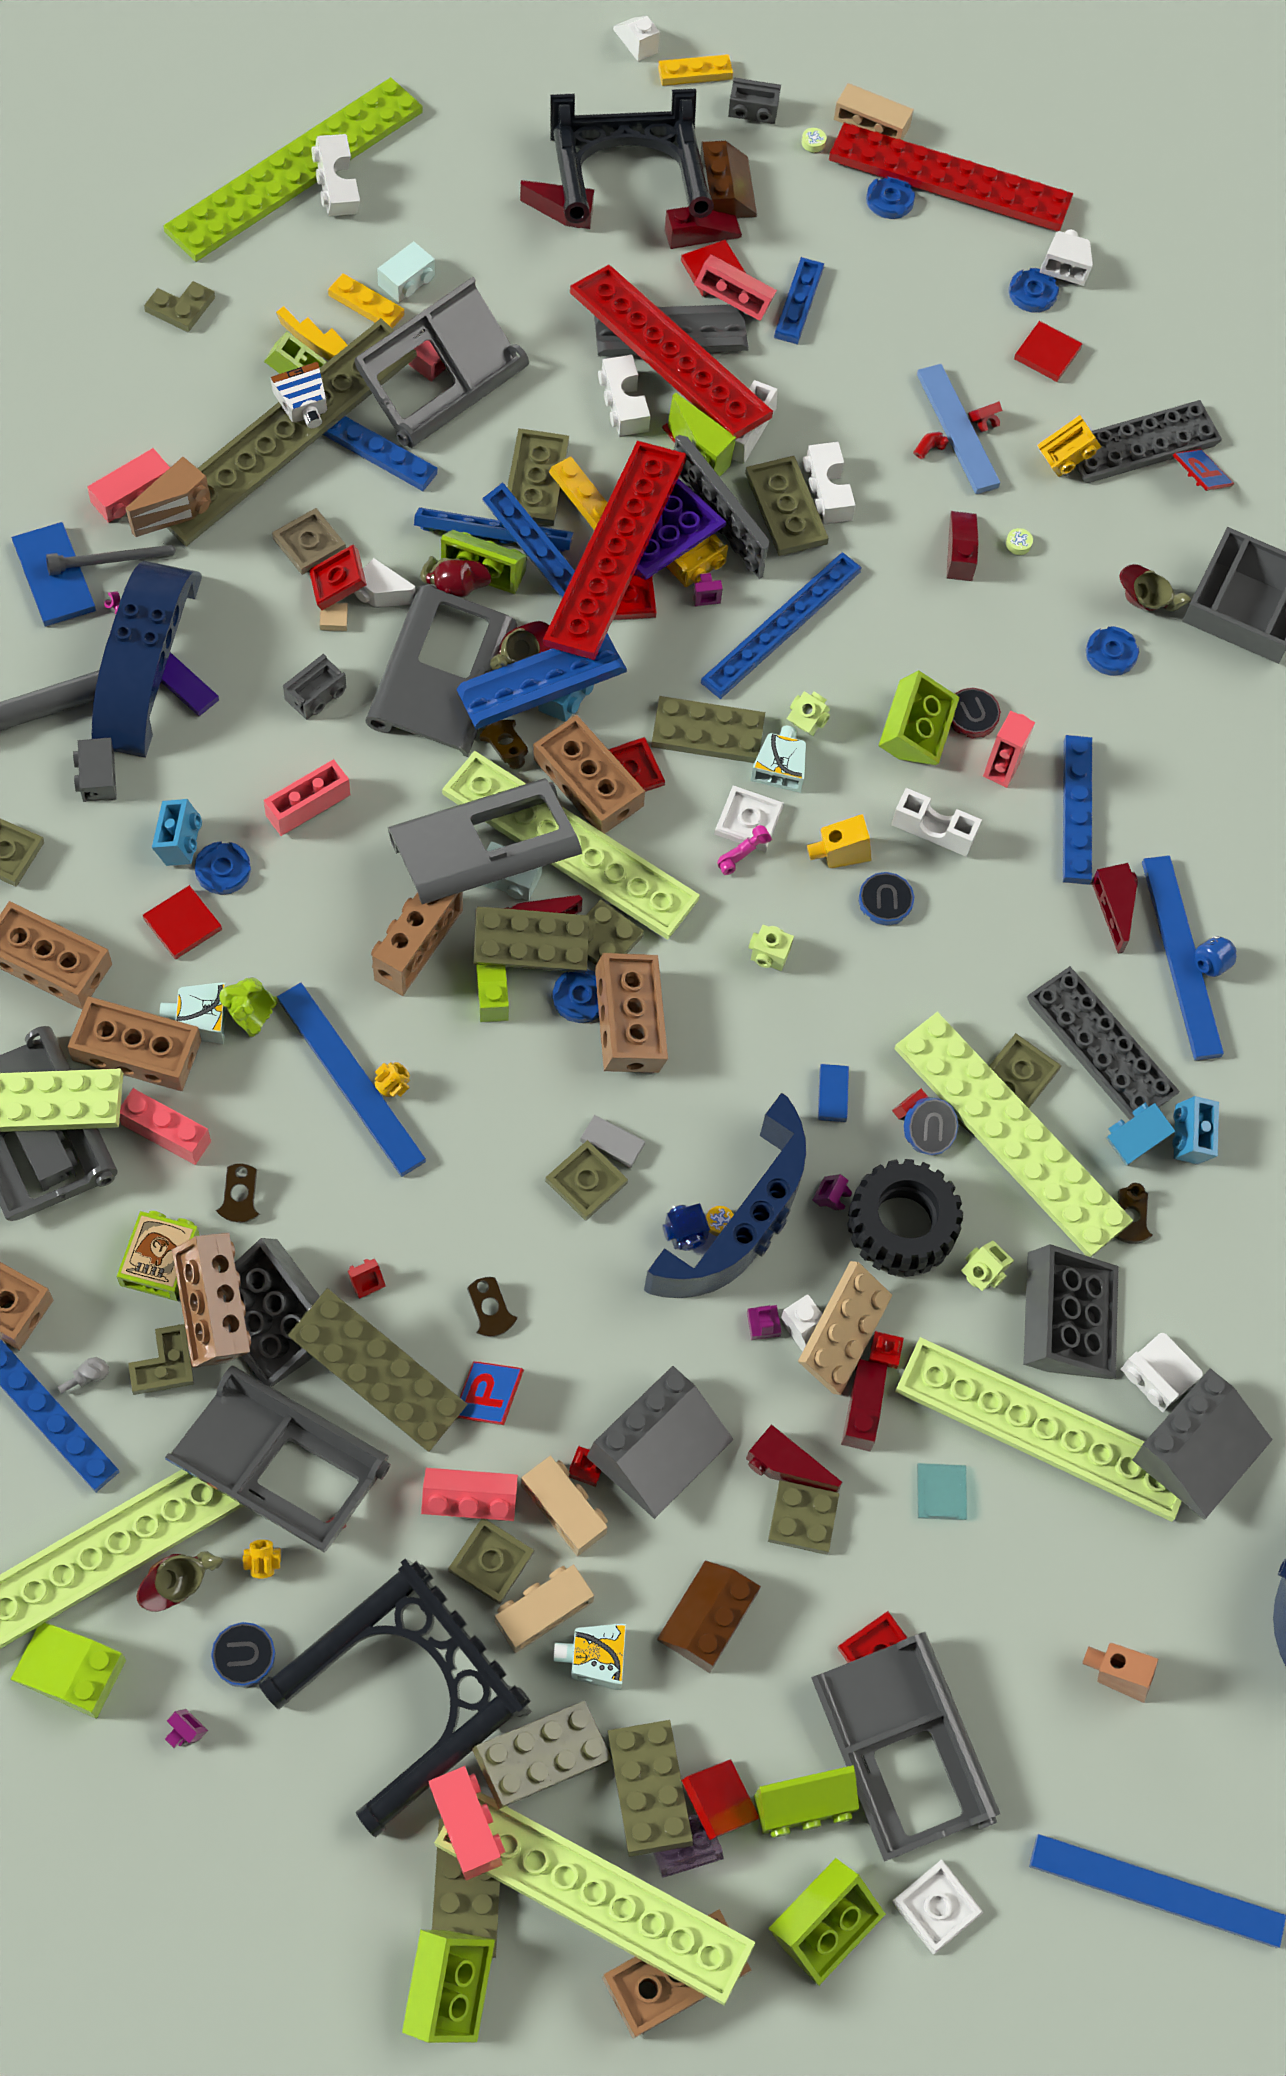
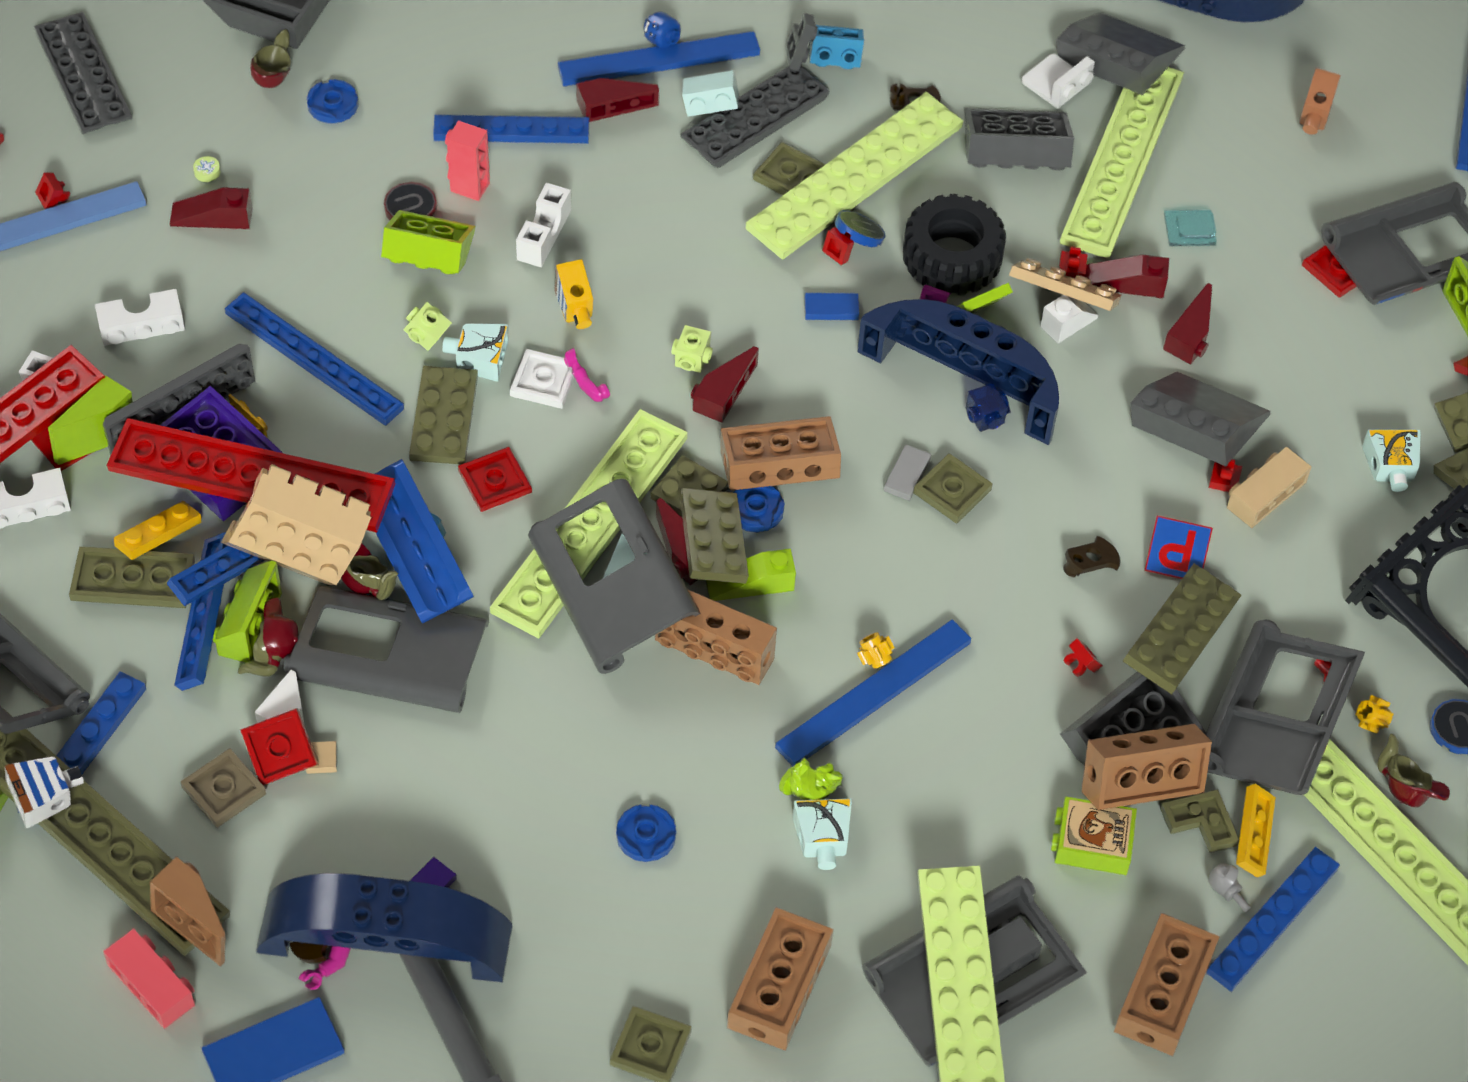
camera: 90 degrees left, 10 degrees down
(57, 563) = (268, 1038): dark grey piece -> none
(96, 769) = (540, 964): dark grey hinge -> none
(133, 1026) = (872, 880): medium nougat brick -> none
(143, 1411) = (1255, 830): none -> yellow plate
(164, 1126) = (961, 834): coral brick -> none
(176, 832) = (617, 869): dark azure brick -> none
(182, 922) = (716, 863): red tile -> none
(243, 1210) = (1031, 772): dark brown piece -> none
(307, 797) = (563, 750): coral brick -> none
(314, 687) = (418, 762): dark grey hinge -> none
(469, 1494) = (1278, 554): coral brick -> none
(491, 1560) = (1330, 540): olive plate -> none
(510, 753) = (487, 582): dark brown piece -> none
(533, 569) = (298, 527): none -> tan slope
(543, 1607) = (1364, 496): tan brick -> none
(589, 774) = (513, 502): medium nougat brick -> none
(707, 591) = (277, 417): magenta tile -> none
(709, 1614) = (1339, 377): reddish brown slope -> none
(718, 1218) = (971, 382): yellow tile -> none
(724, 973) = (723, 385): none -> dark red slope
(764, 1322) = (1064, 352): magenta tile -> none
(786, 505) = (165, 353): olive plate -> none
(803, 1517) = (1236, 320): olive plate -> none
(819, 1230) = (986, 299): none -> lime tile
(886, 898) = (623, 269): black tile -> none
(930, 441) = (84, 236): red arm -> none
(987, 1266) = (988, 187): yellowish green brick -> none
(1069, 446) = (100, 119): yellow hinge -> none
(1120, 993) = (710, 93): none -> light aqua brick
(1139, 1133) = (847, 82): dark azure brick -> none
(1193, 1085) = (799, 39): none -> dark grey plate
(1203, 469) = (123, 24): piece -> none

